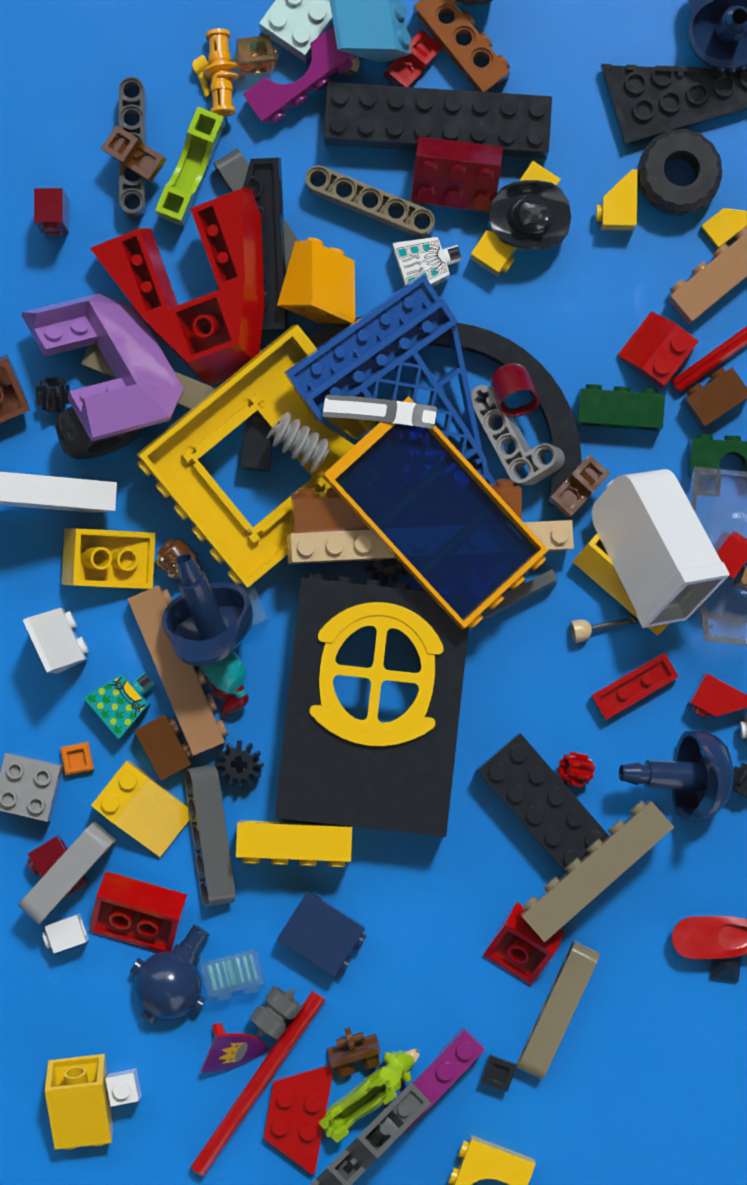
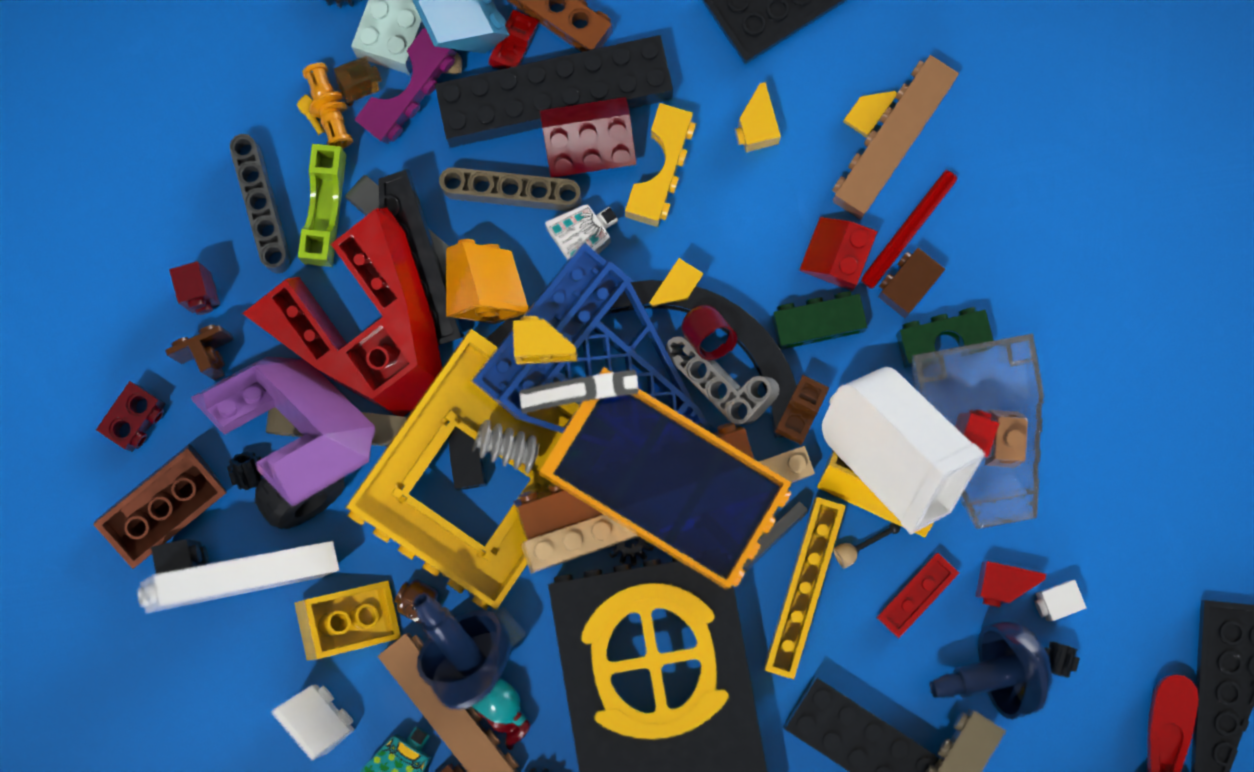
camera: 10 degrees left, 5 degrees down
(44, 270) = (202, 350): none -> reddish brown bracket
(133, 154) = (261, 208): reddish brown slope -> none
(357, 357) = (540, 343): none -> yellow slope
(499, 337) = (677, 284): none -> yellow tile
(530, 215) = (673, 155): black hat -> none
(533, 649) = (804, 588): none -> yellow brick
(576, 769) = (884, 698): red gear -> none
(698, 153) = (814, 48): black tyre -> none

